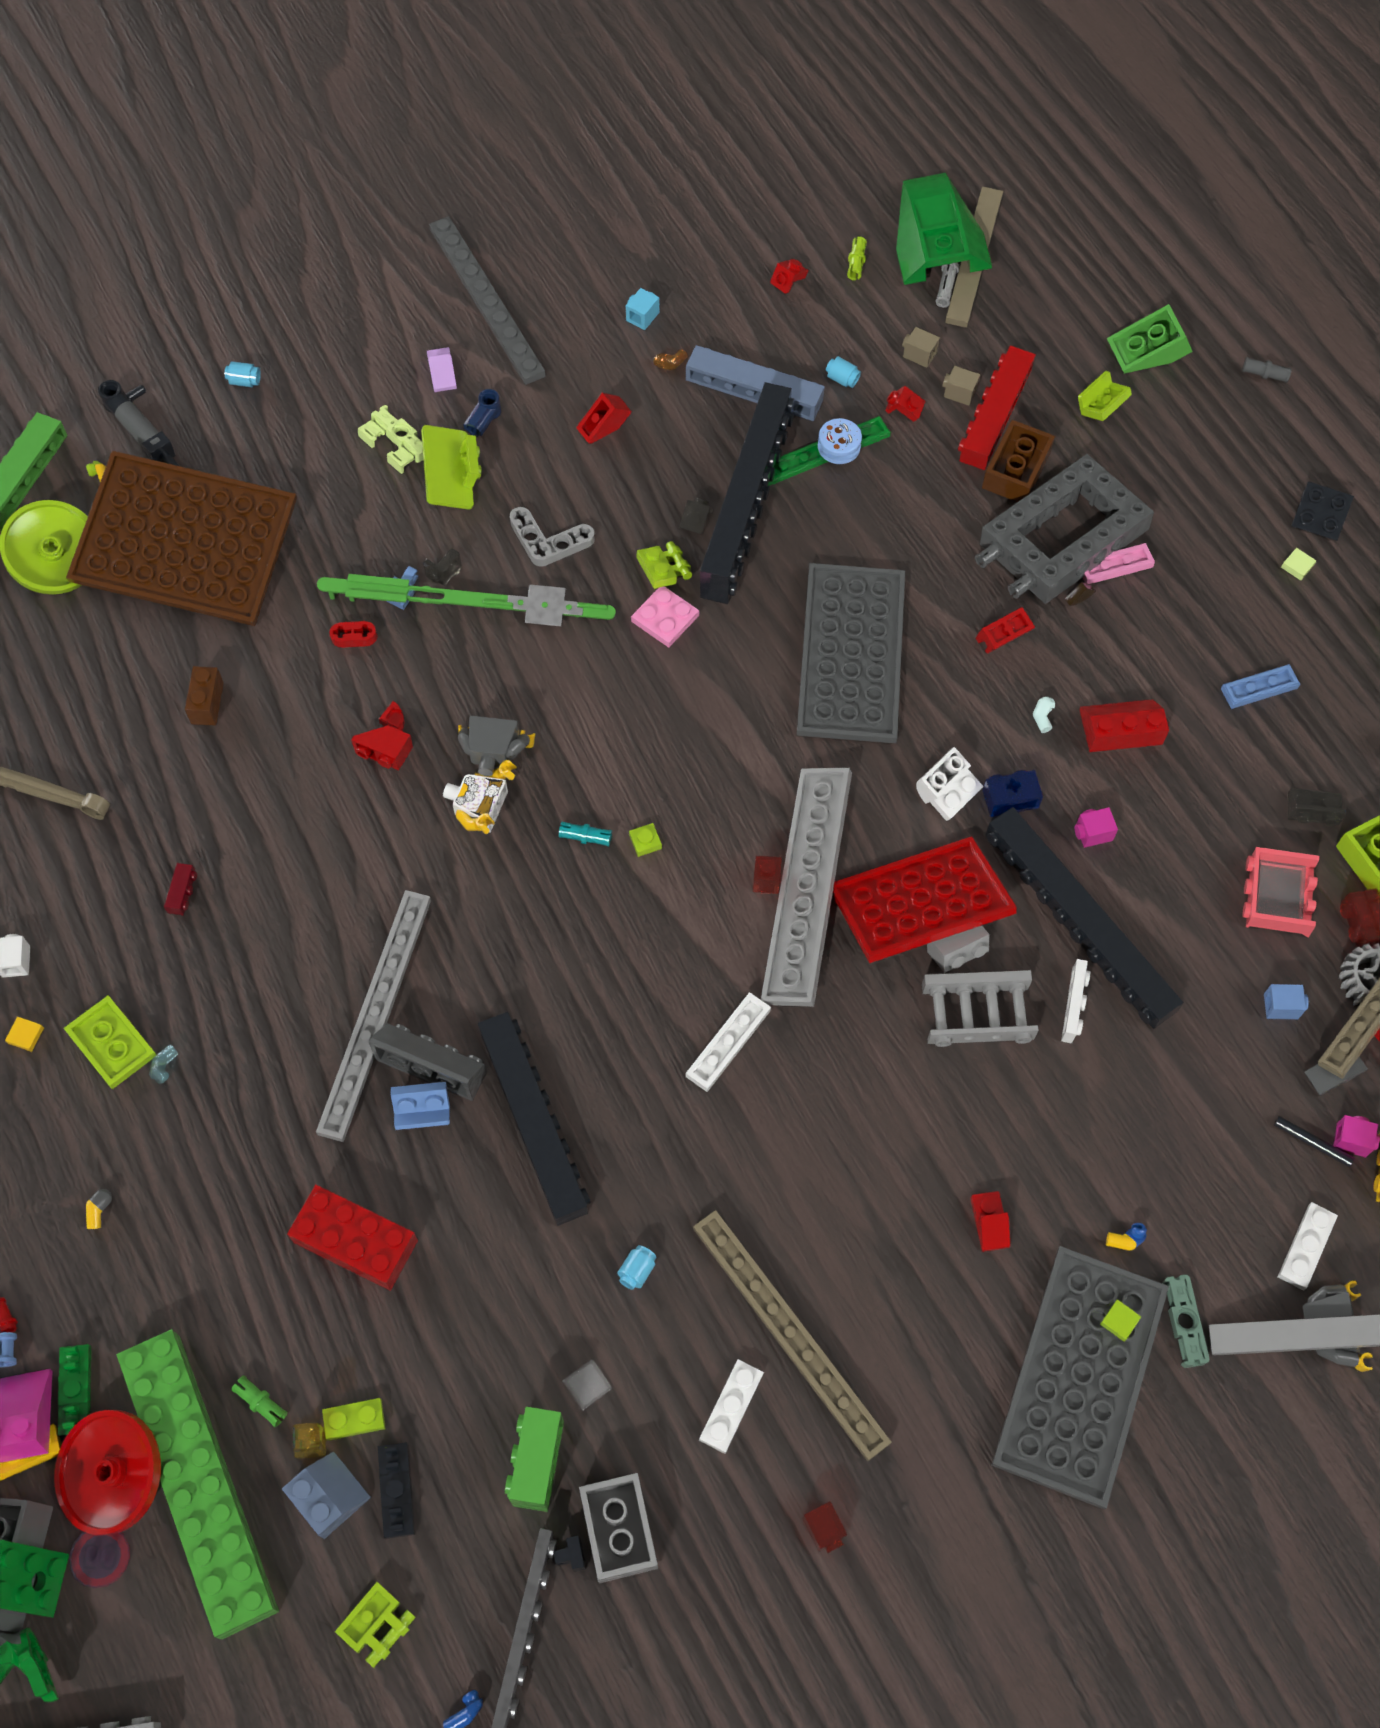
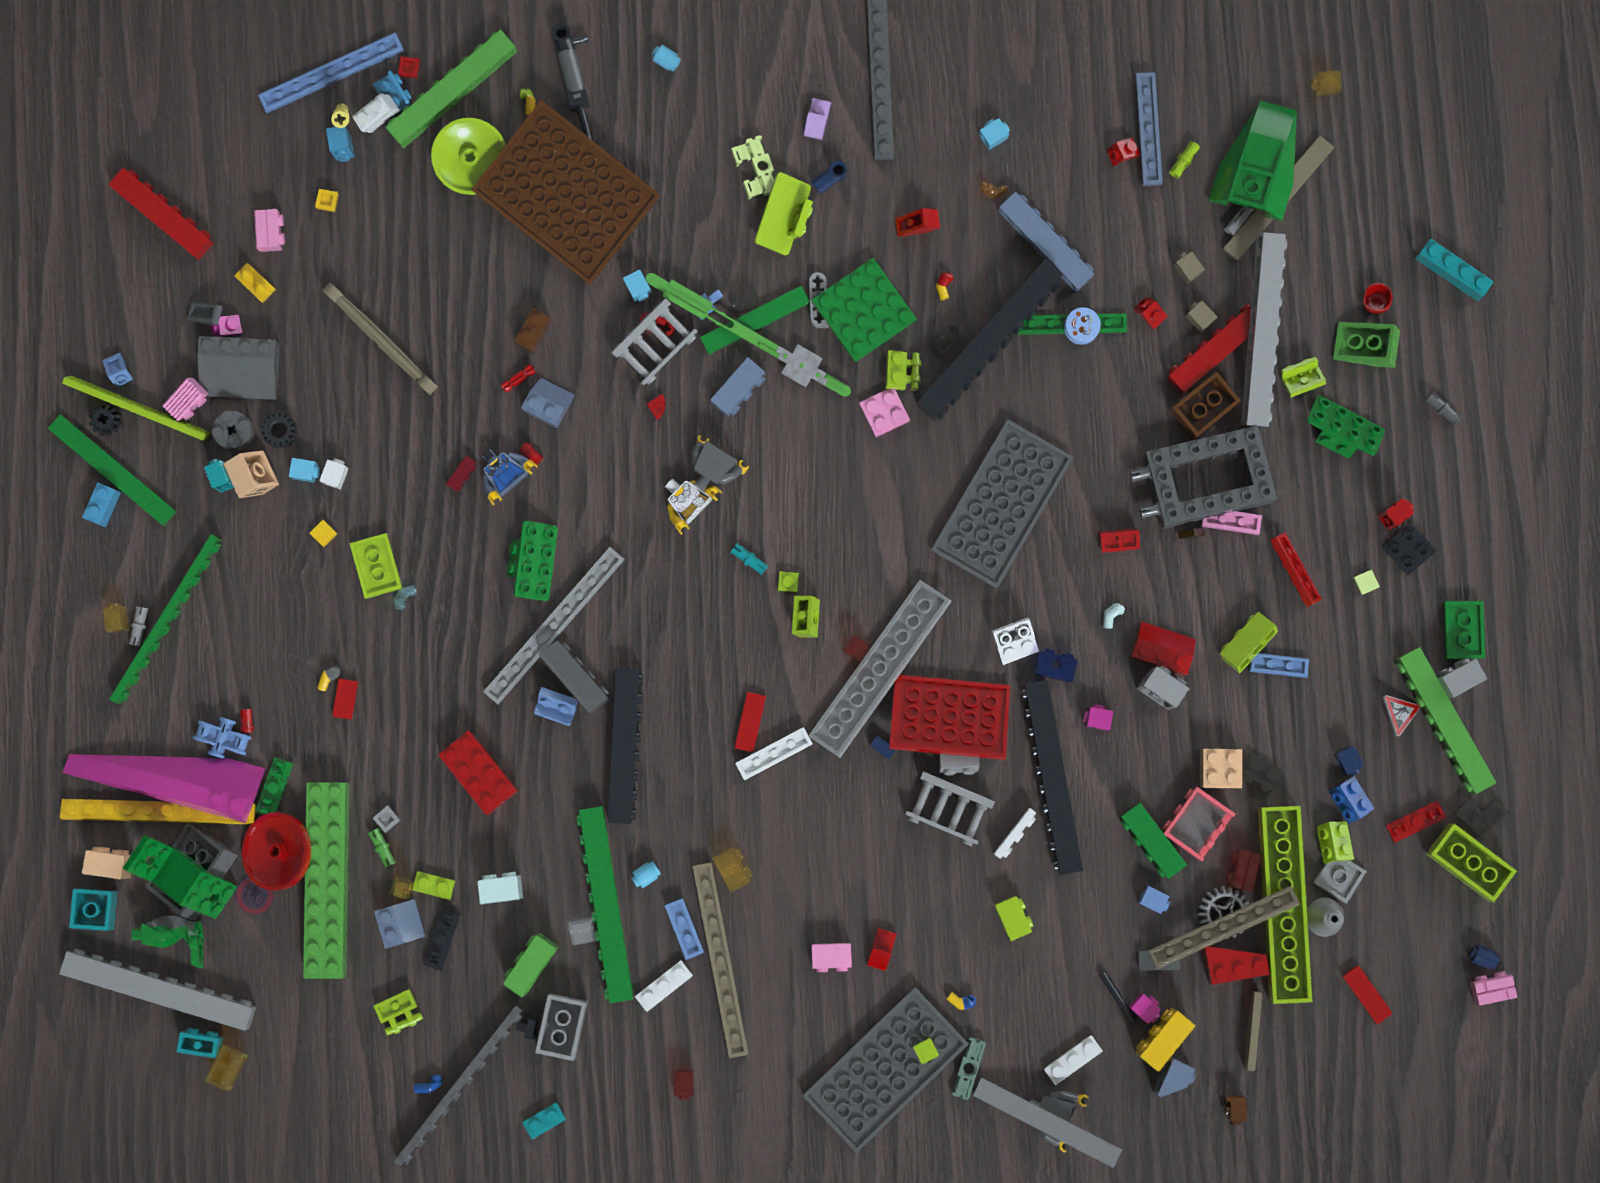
camera: 25 degrees right, 20 degrees up
(131, 1227) = (345, 699): none -> red tile
(207, 756) = (518, 378): none -> red axle
(235, 861) = (504, 473): none -> torso
(250, 1358) = (386, 819): none -> light grey plate
(255, 768) = (547, 402): none -> sand blue slope
(259, 830) = (531, 453): none -> red pin
(310, 599) = (637, 286): none -> medium azure brick
(313, 948) = (532, 560): none -> green bracket
(332, 648) = (636, 337): none -> light grey fence
(384, 745) = (641, 427): red slope -> none
(447, 1373) = (500, 889): none -> light aqua brick
(470, 579) = (756, 319): none -> green tile
(481, 657) = (738, 388): none -> sand blue brick
(588, 523) = (863, 310): none -> green plate
(604, 1333) = (606, 905): none -> green brick
(654, 1683) = (544, 1120): none -> teal plate
(662, 467) = (944, 279): none -> arm
(679, 1019) = (750, 722): none -> red tile
(686, 863) = (805, 616): none -> lime brick
(722, 1314) = (684, 928): none -> medium blue plate
(747, 1206) = (732, 869): none -> clear yellow brick
(804, 246) = (1148, 129): none -> sand blue plate
(843, 372) = (1118, 262): medium azure brick -> none
(859, 975) = (882, 747): none -> dark blue piece
(932, 1258) = (831, 956): none -> bright pink brick
(962, 140) = (1327, 83): none -> clear yellow brick
(1036, 361) = (1263, 329): none -> light grey brick
(1131, 1102) = (1013, 917): none -> lime brick
(1133, 297) = (1377, 298): none -> red hair
(1152, 753) = (1163, 688): none -> light grey brick
(1176, 431) = (1343, 429): none -> green bracket
(1193, 244) = (1454, 270): none -> teal brick
(1213, 672) = (1248, 642): none -> lime brick
(1224, 586) = (1296, 569): none -> red plate
(1242, 935) = (1153, 841): none -> green brick
(1269, 818) = (1220, 768): none -> light nougat brick
(1287, 478) = (1396, 513): none -> red brick

